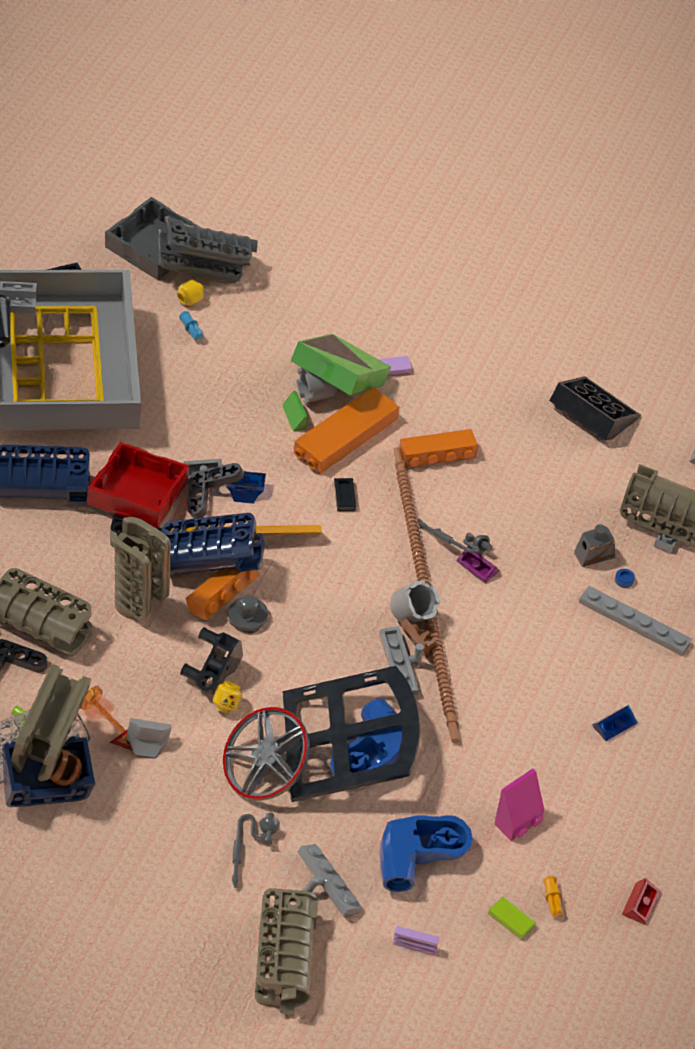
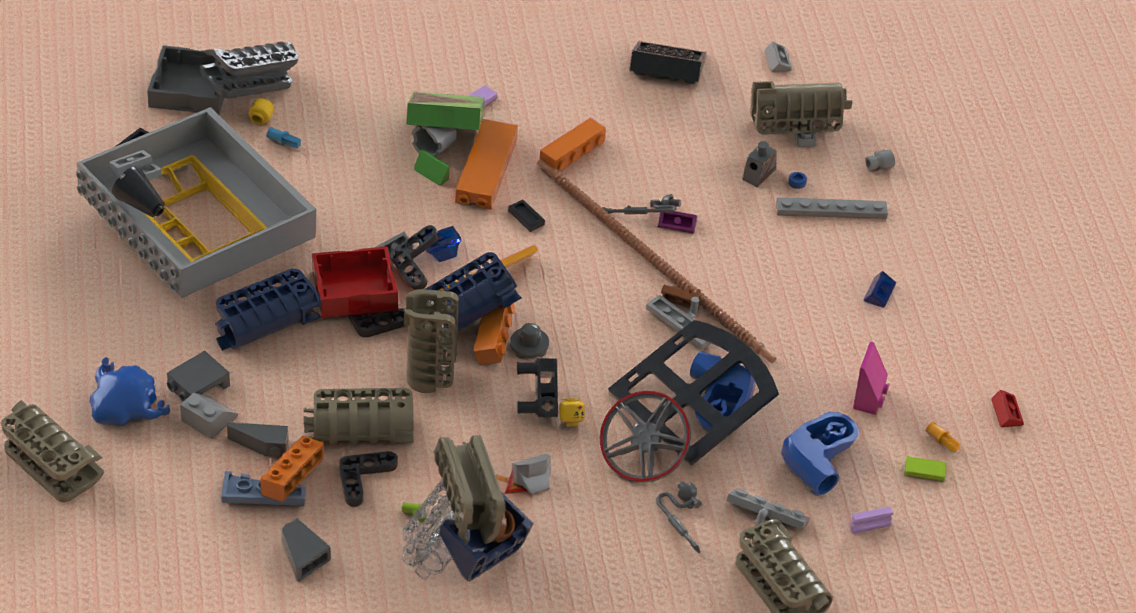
camera: 30 degrees left, 5 degrees down
(415, 602) = (661, 269): light grey cylinder -> none

